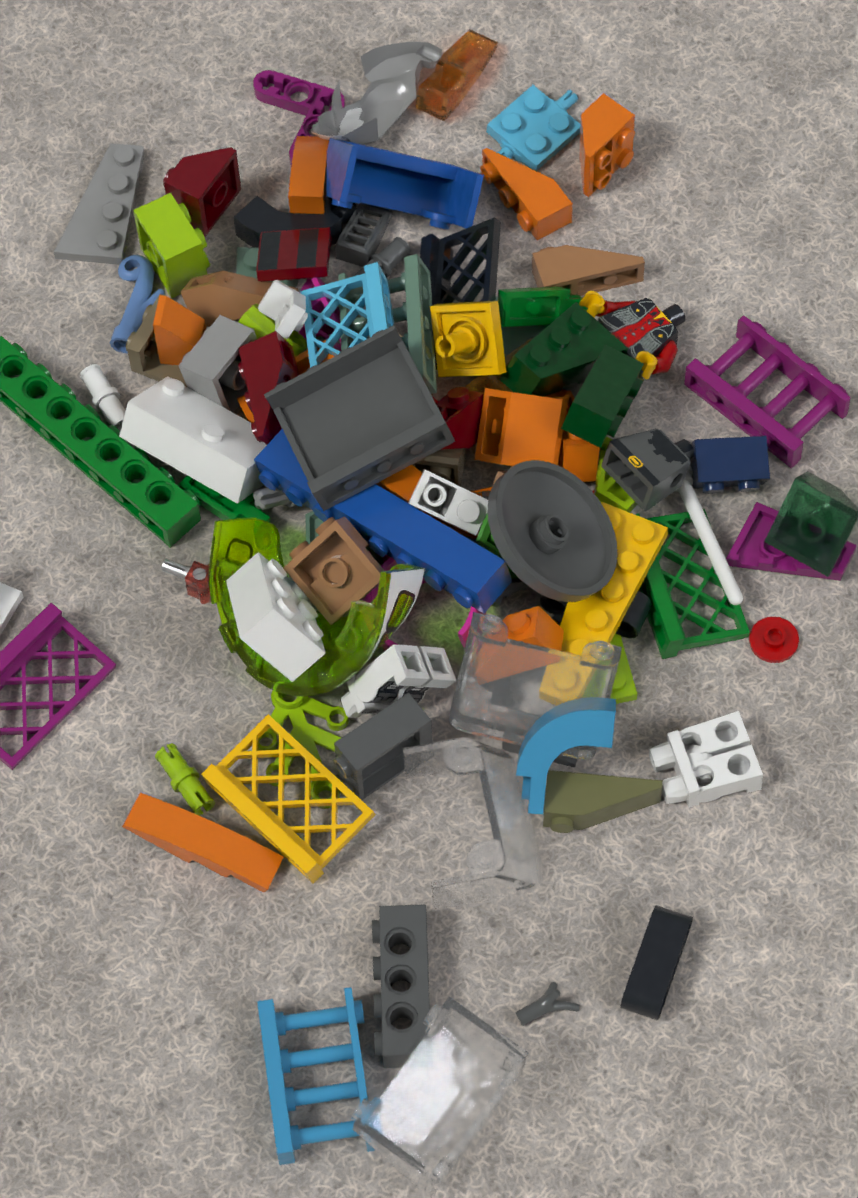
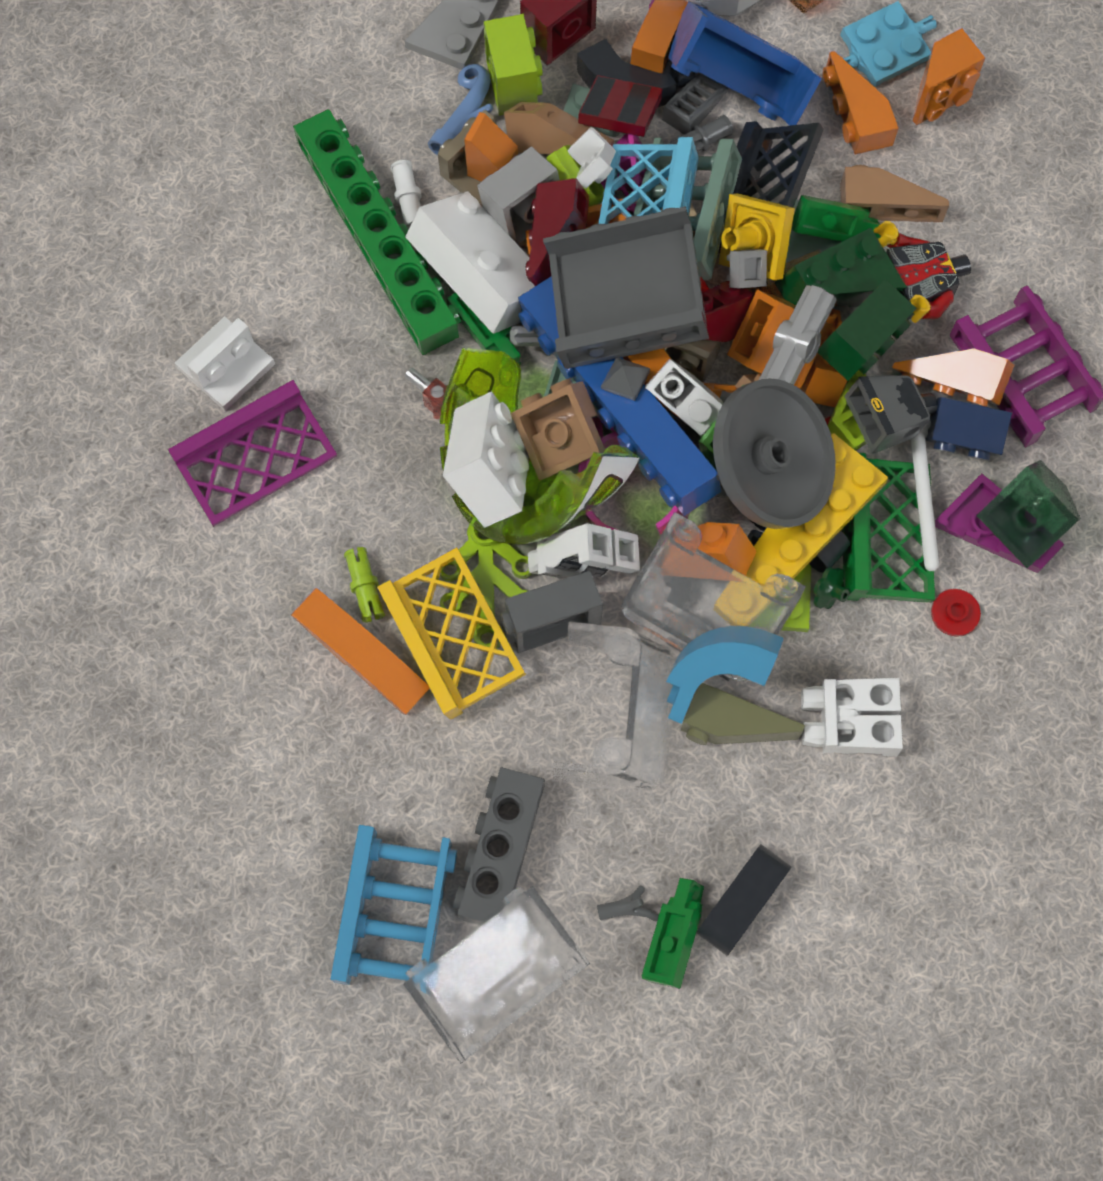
camera: 15 degrees right, 10 degrees up
(386, 501) = (625, 378): none -> dark grey slope
(469, 370) = (747, 268): none -> light grey tile
(541, 418) = (800, 336): none -> light grey piece
(600, 1016) = (674, 935): none -> green hinge
(646, 650) = (830, 588): none -> dark green plant
(713, 410) = (965, 371): none -> slope

